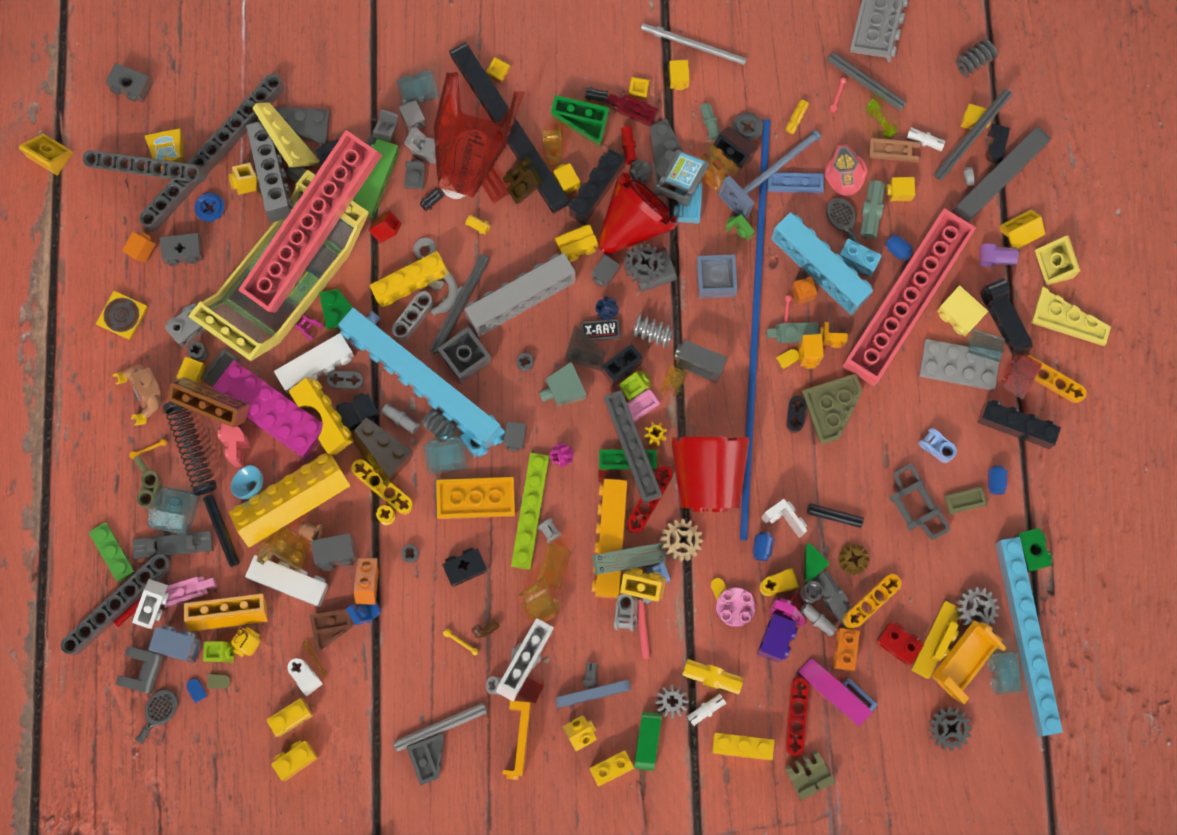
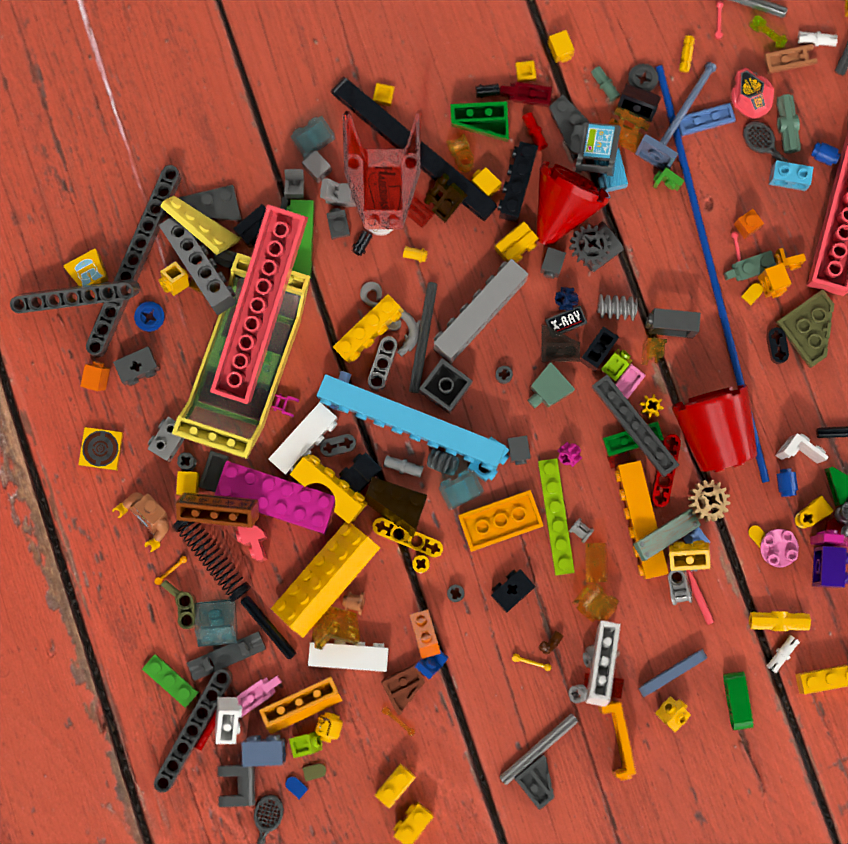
camera: 15 degrees left, 5 degrees up
(121, 76) = (19, 211): dark grey brick -> none
(244, 479) = (273, 572): medium azure piece -> none
(306, 678) = (397, 744): white piece -> none
(334, 308) = (305, 378): green wing -> none
(334, 552) = (385, 615): dark grey brick -> none
(385, 226) = (326, 283): red panel -> none
(590, 675) = (665, 657): dark grey pin -> none
(611, 768) = (713, 738): yellow brick -> none
(640, 171) = (555, 153): dark grey gear -> none
(660, 32) = (528, 10): light grey bar -> none
(676, 696) = (746, 664): light grey gear -> none
(716, 276) = (661, 235): piece -> none
(821, 263) = (758, 192): medium azure brick -> none
(901, 189) = (809, 95): yellow brick -> none

